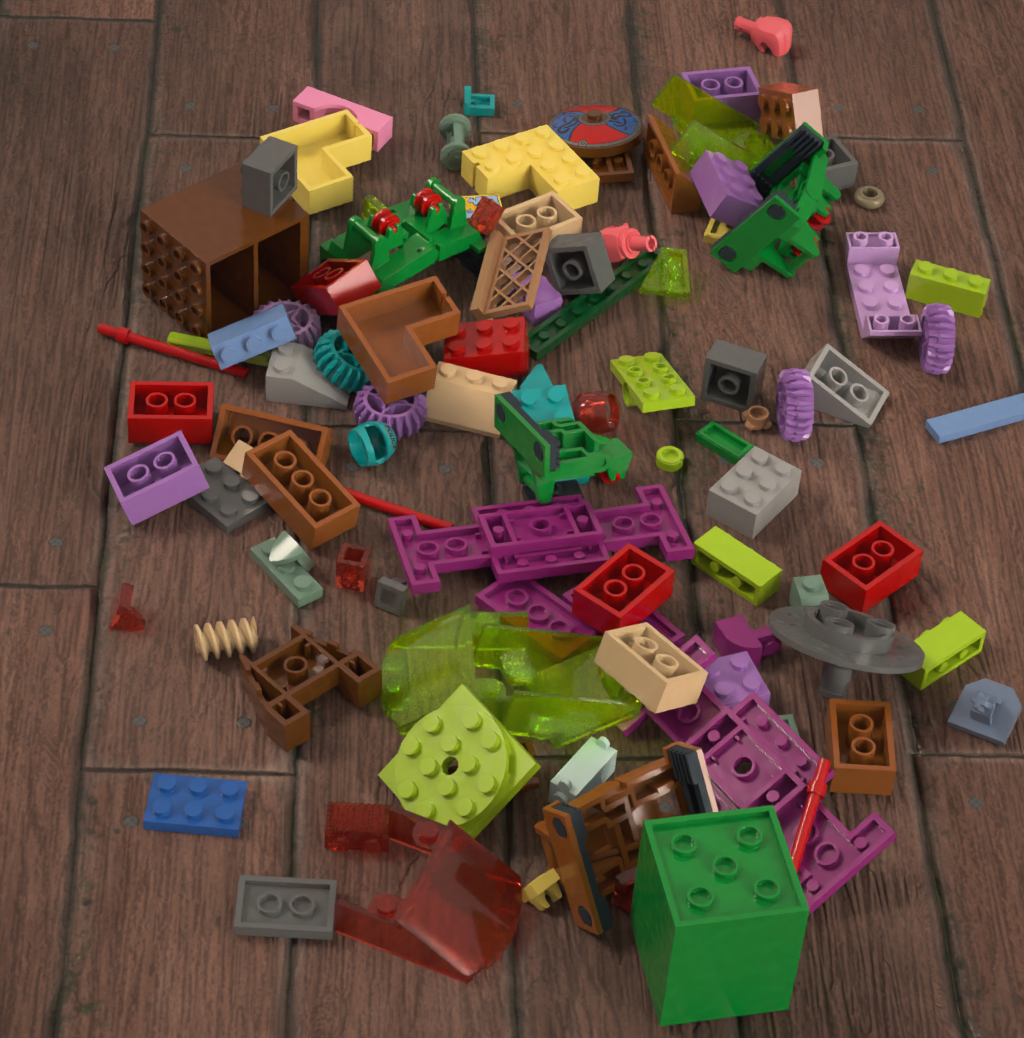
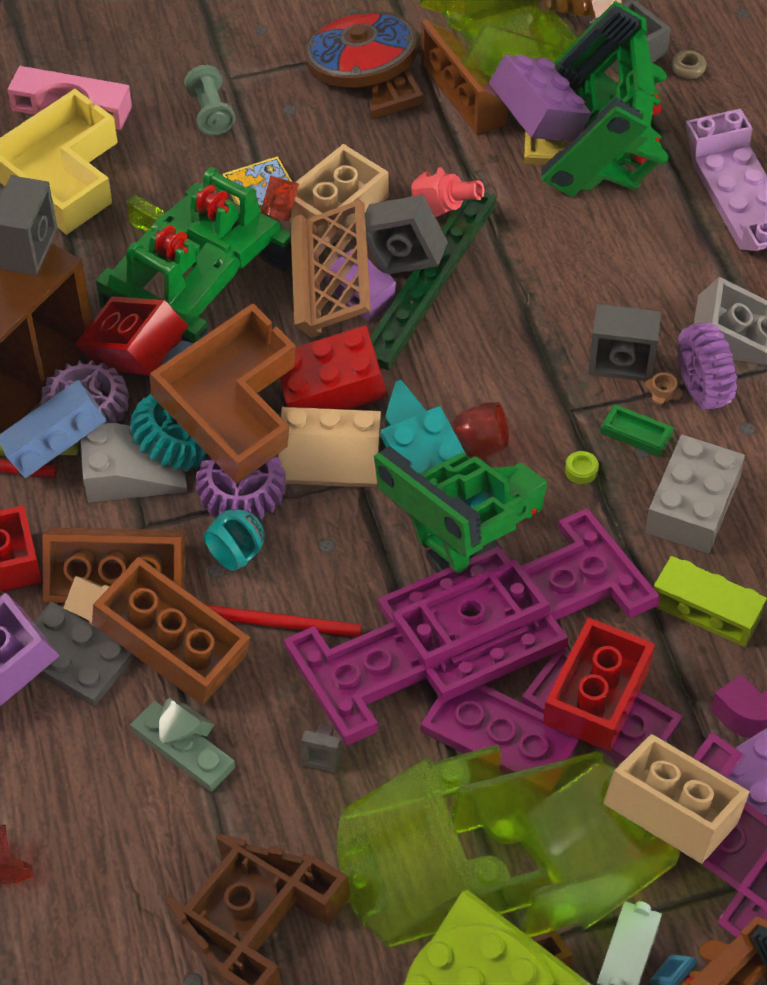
camera: 10 degrees left, 10 degrees up
(226, 638) = (139, 870): tan piece -> none
(353, 567) = (264, 724): clear red brick -> none
(478, 103) = (218, 42): teal tile -> none
(533, 162) = (303, 106): light yellow piece -> none
(651, 383) = (533, 374): lime plate -> none
(668, 274) = (503, 220): clear neon green wing -> none

